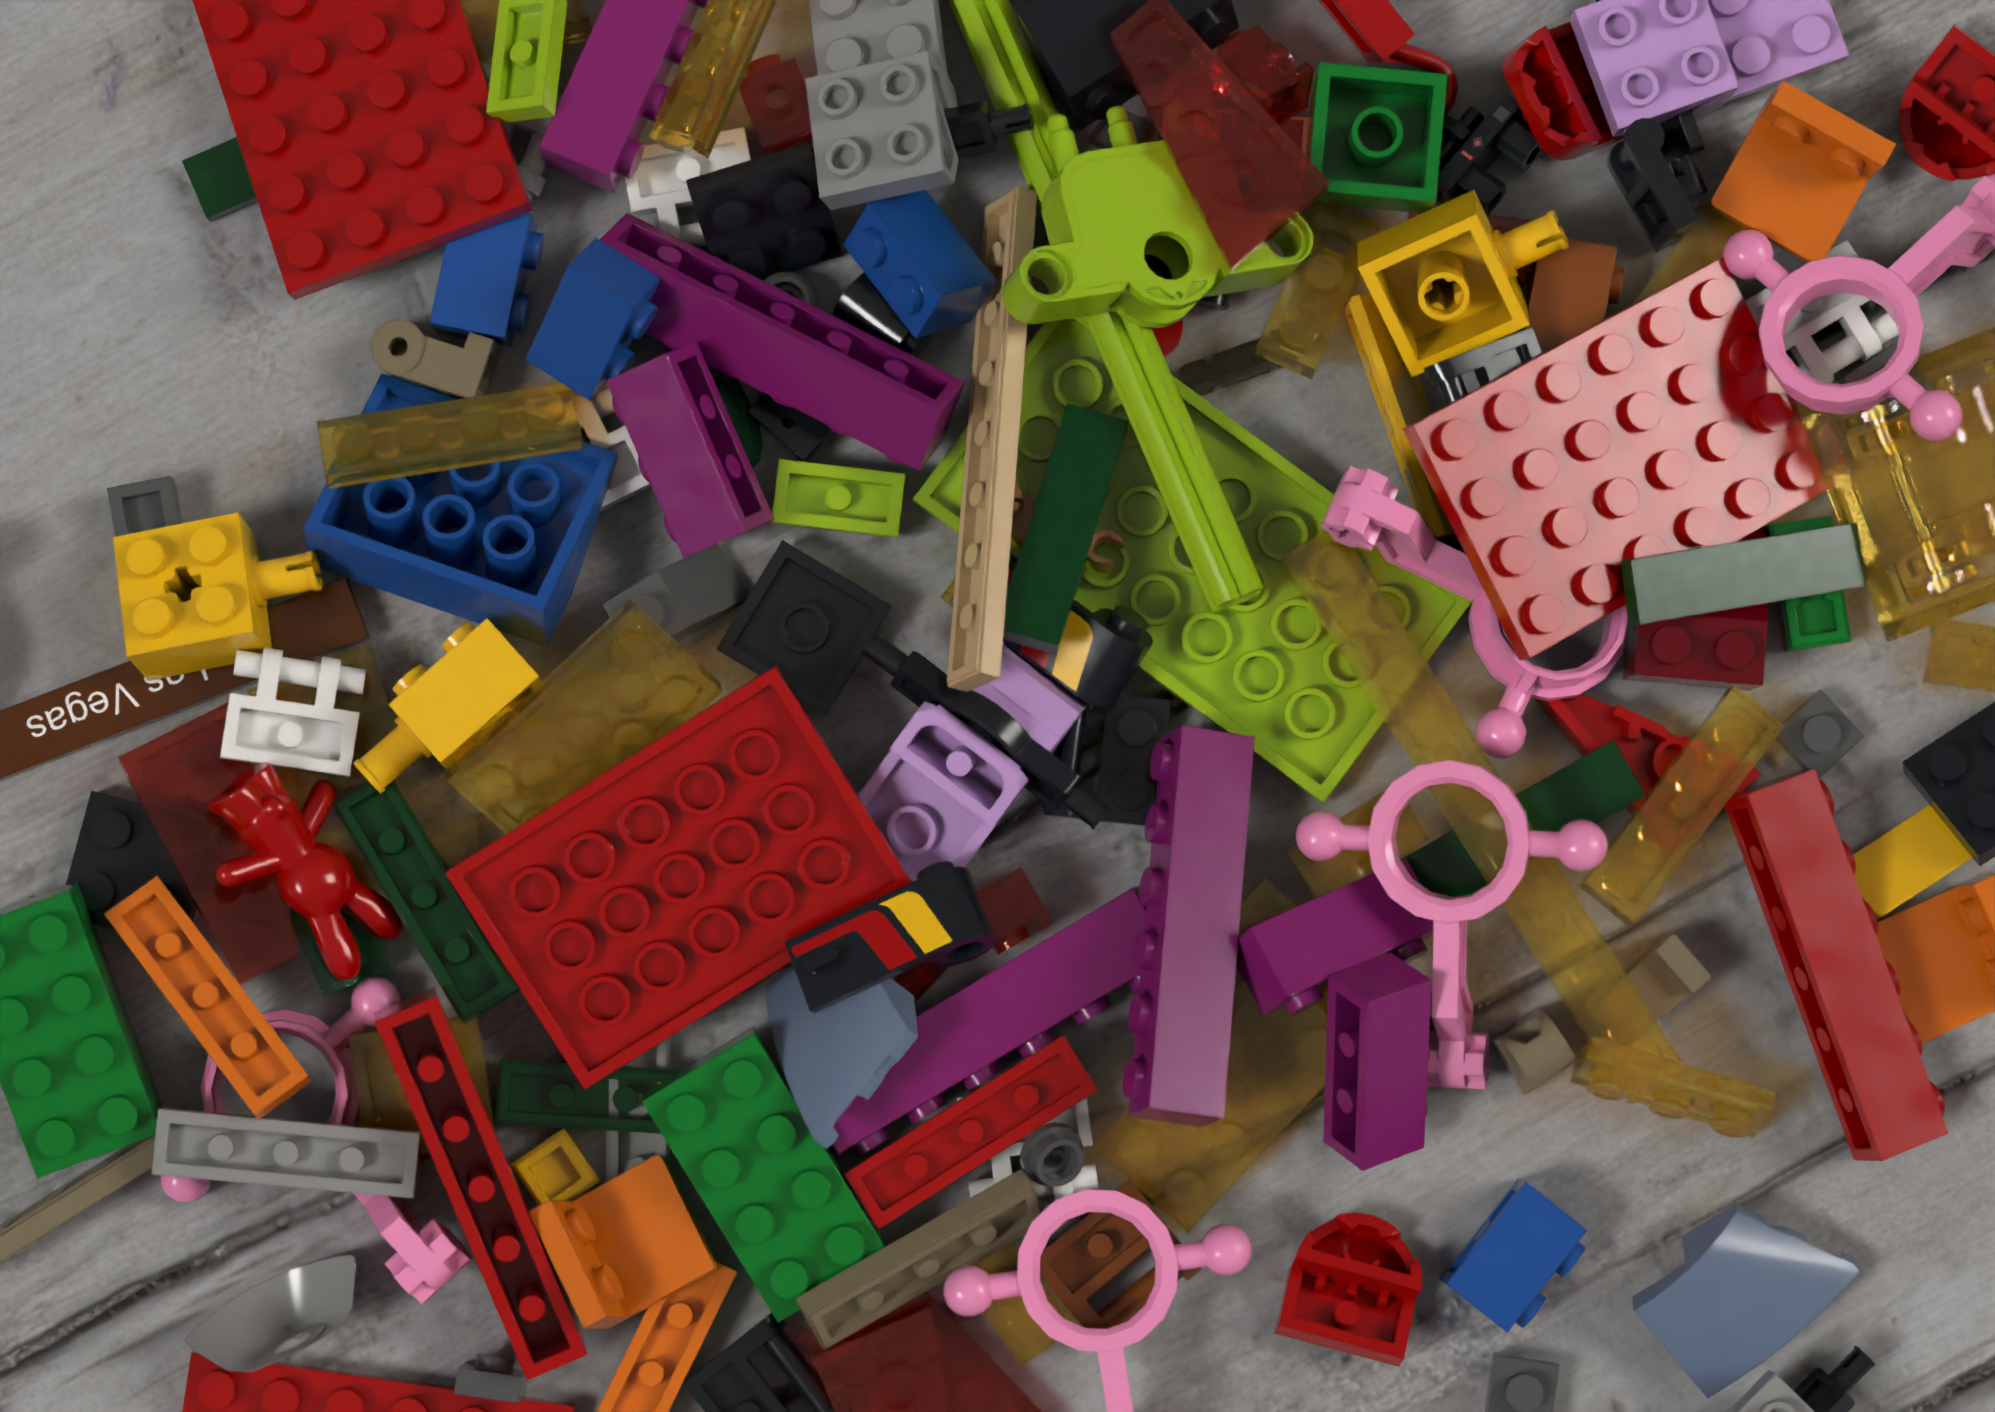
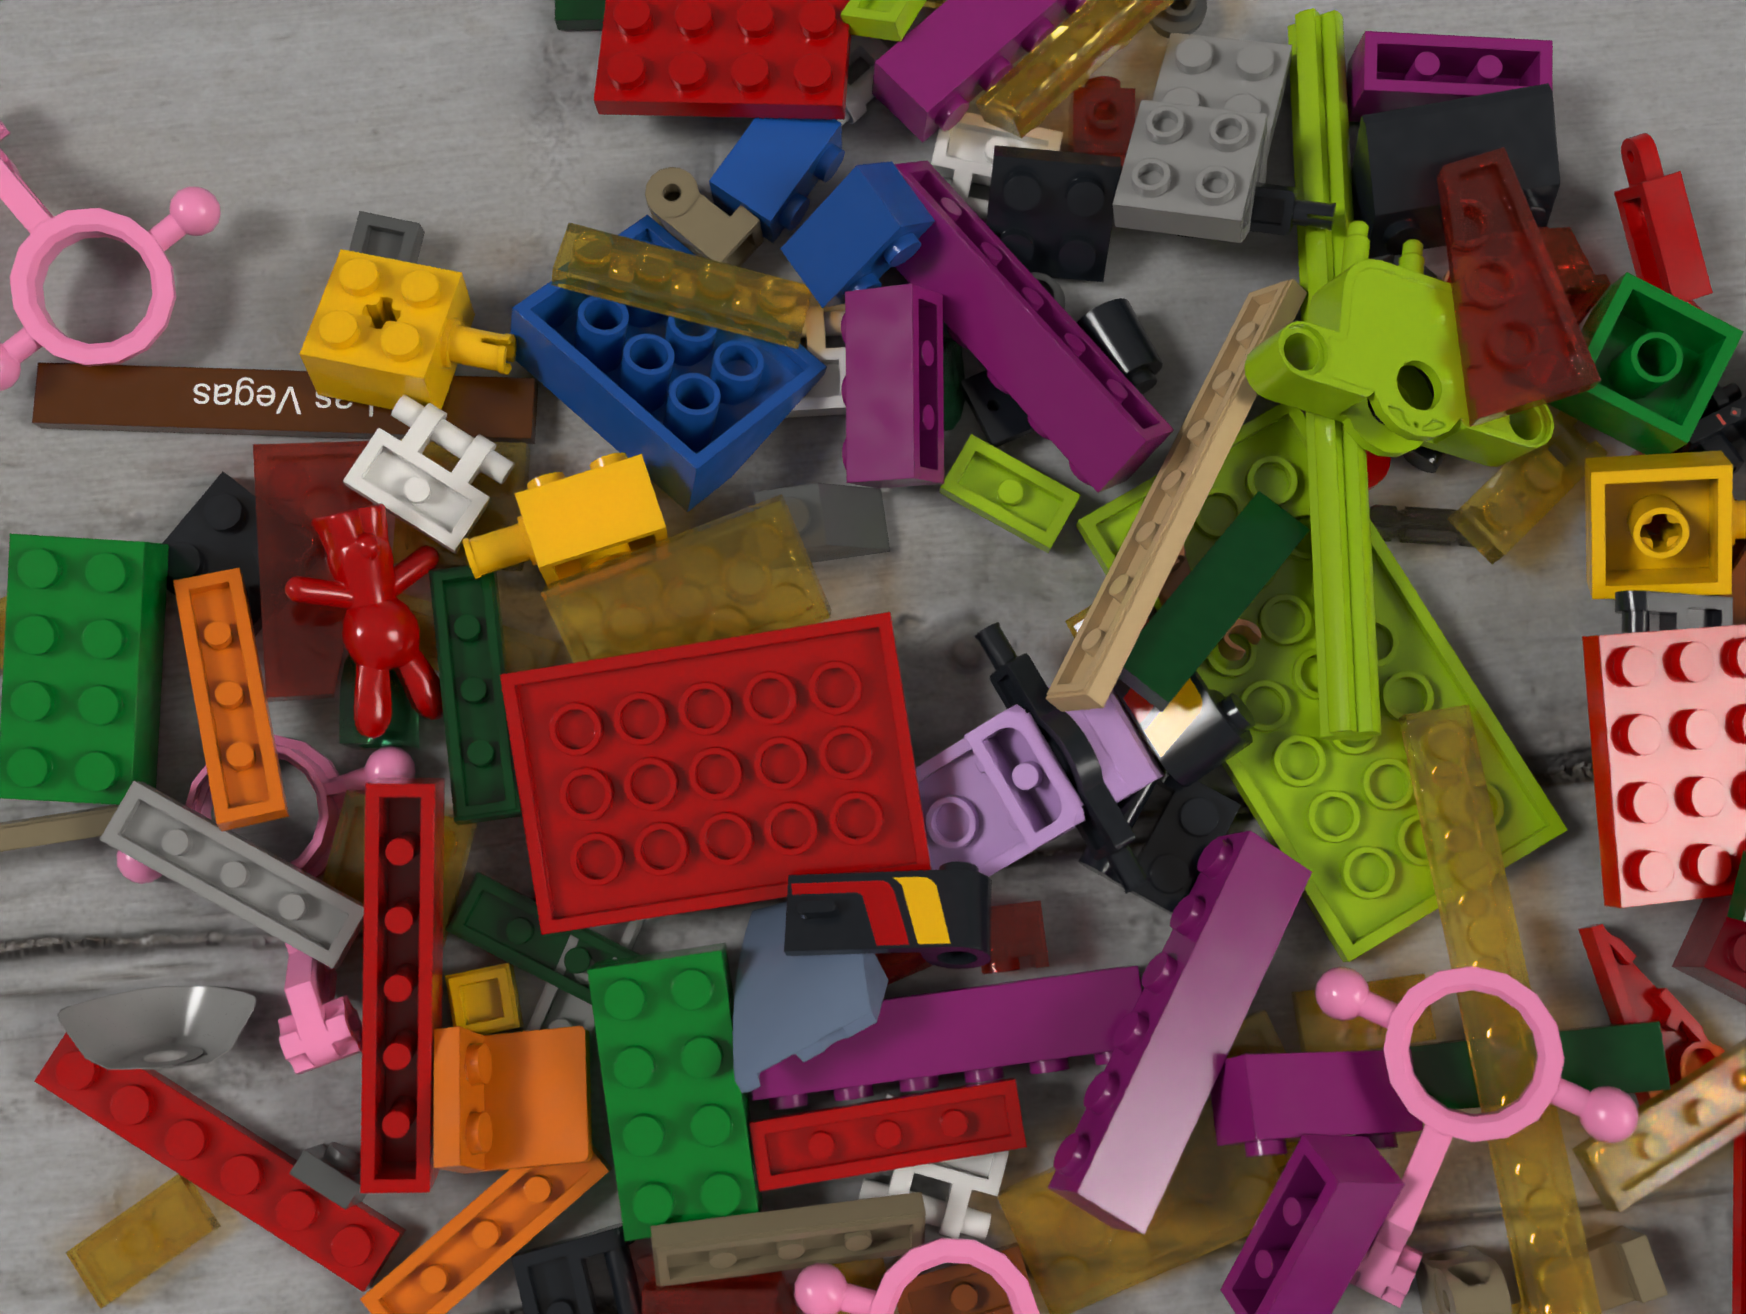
camera: 25 degrees right, 5 degrees down
(806, 625) = (935, 594): black plate -> none
(919, 263) = (1174, 309): blue brick -> none
(1059, 1166) = (956, 1191): dark grey plate -> none
(1367, 515) = (1531, 736): bright pink piece -> none
(1399, 403) = (1559, 637): yellow slope -> none

